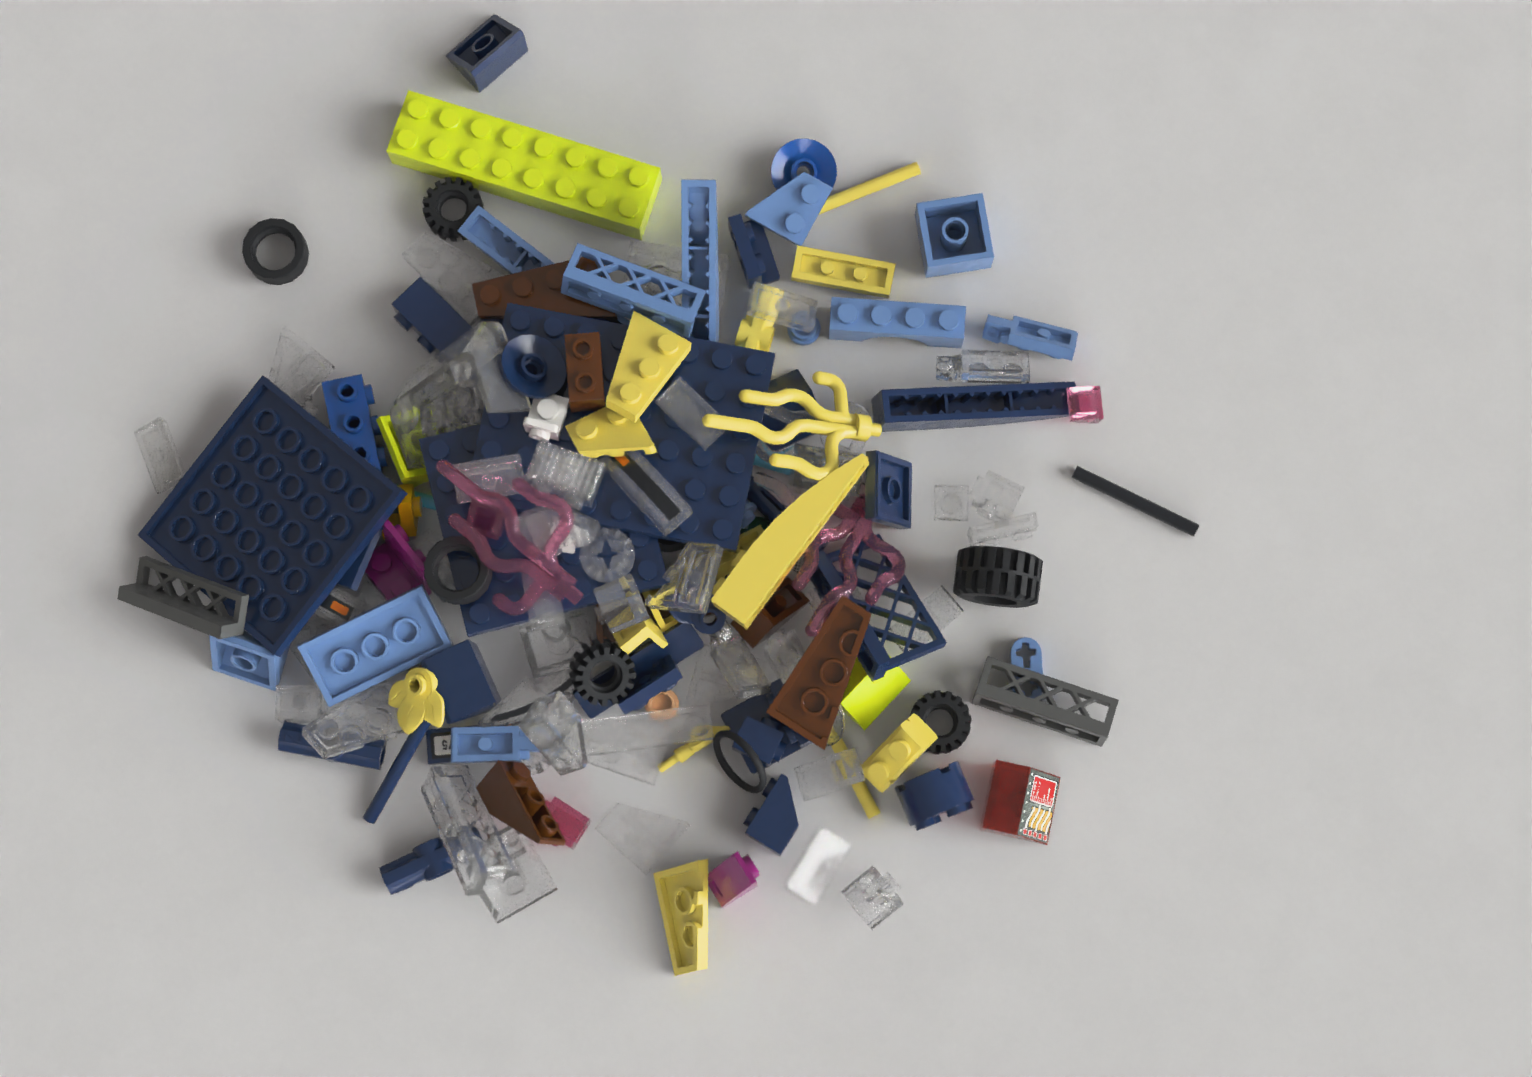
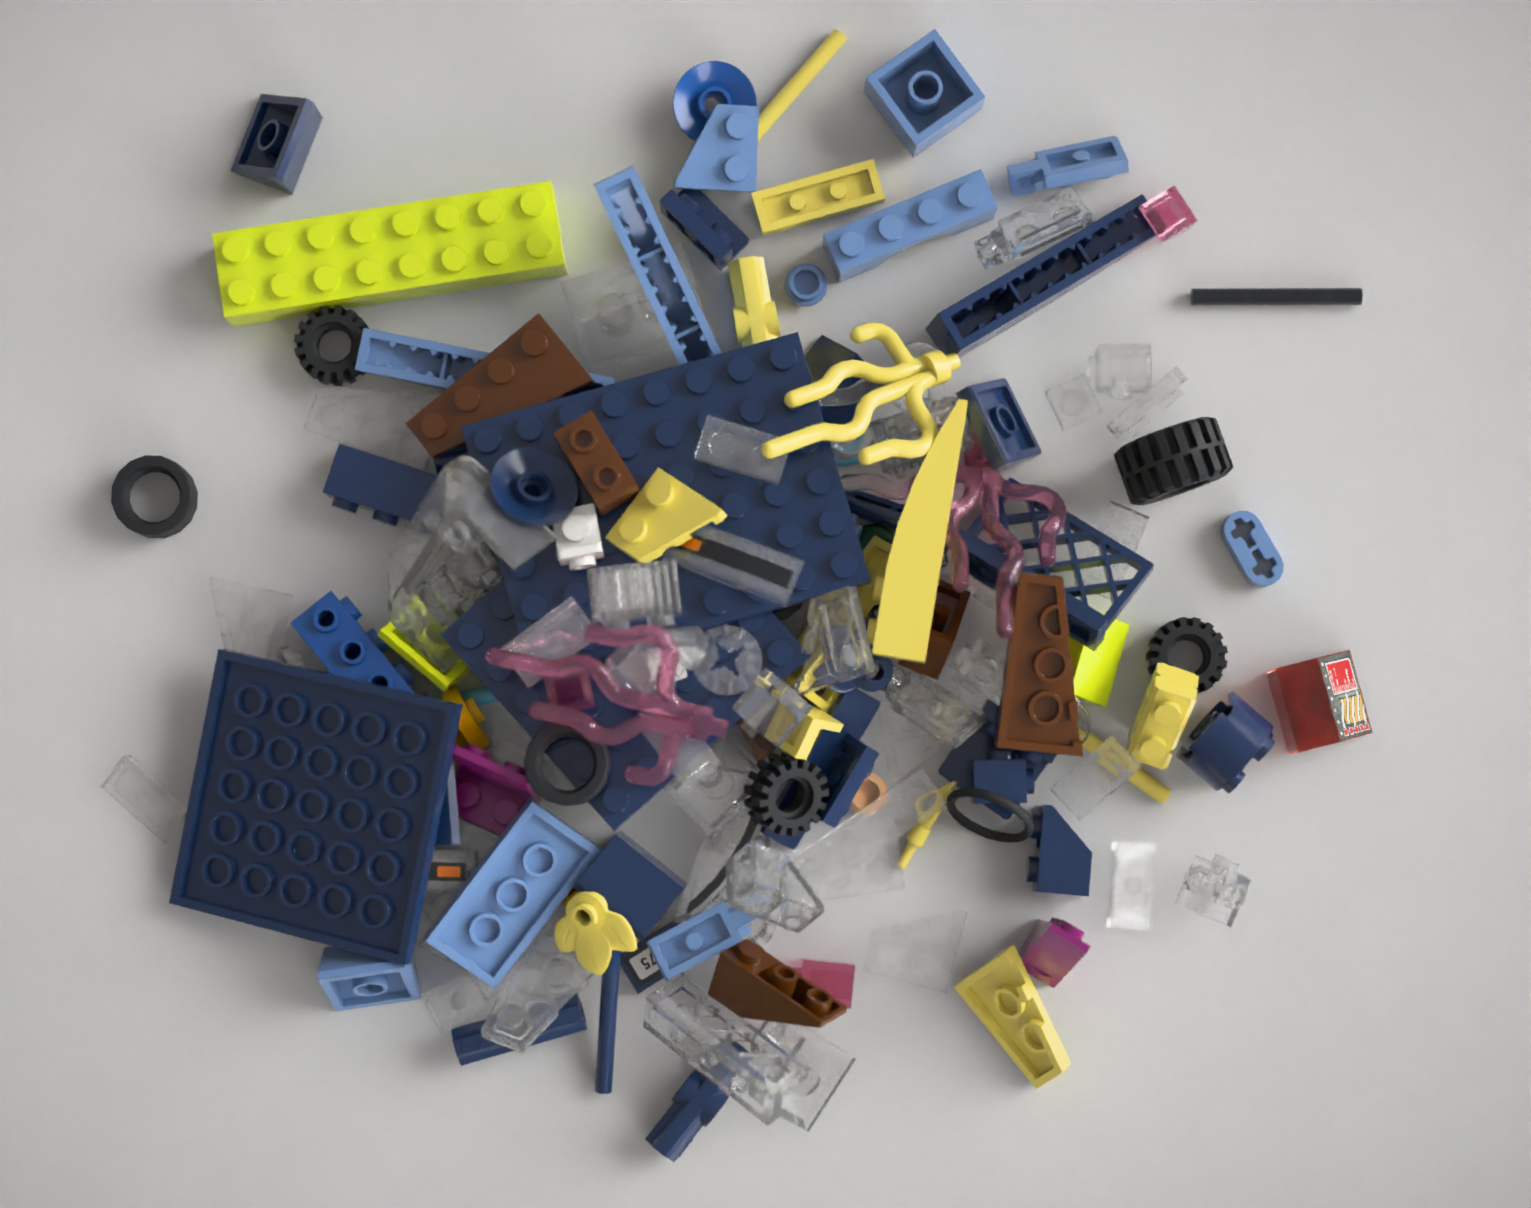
camera: 30 degrees left, 5 degrees up
(179, 608) = (274, 965): dark grey fence -> none
(623, 298) = (600, 356): medium blue fence -> none
(644, 366) = (660, 422): light yellow wing -> none
(782, 307) = (773, 273): clear slope -> none
(1042, 713) = (1298, 589): dark grey fence -> none

